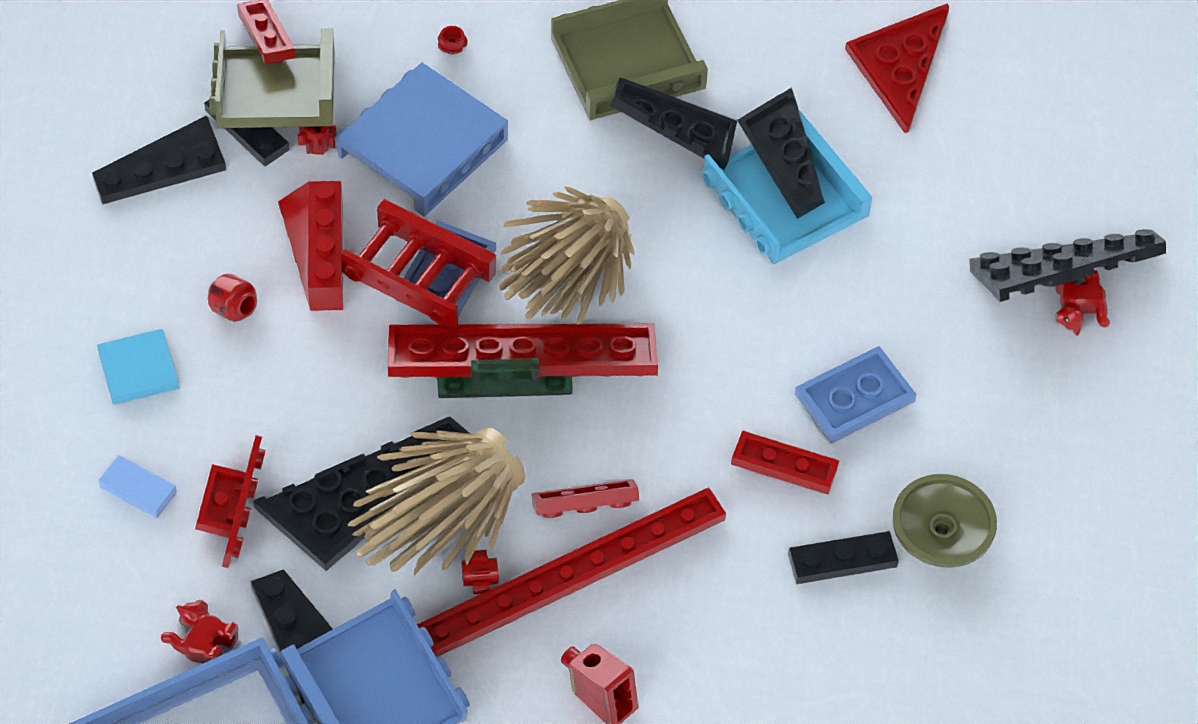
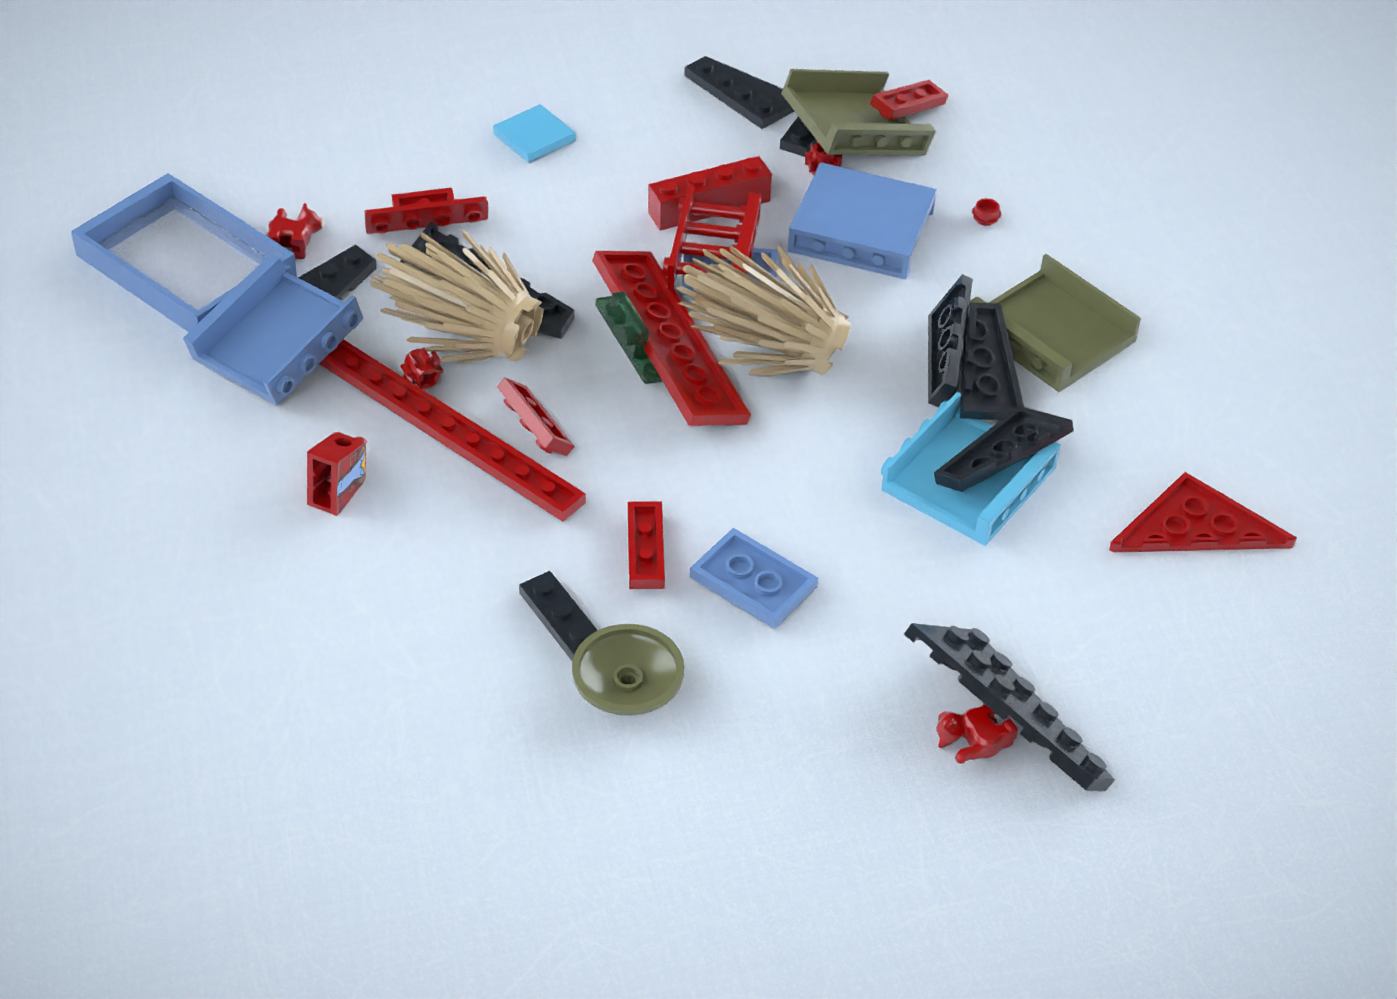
camera: 70 degrees right, 10 degrees down
(137, 486) = (420, 164): light blue tile -> none
(232, 297) = (625, 157): red head -> none
(625, 137) = (946, 340): none -> black wing

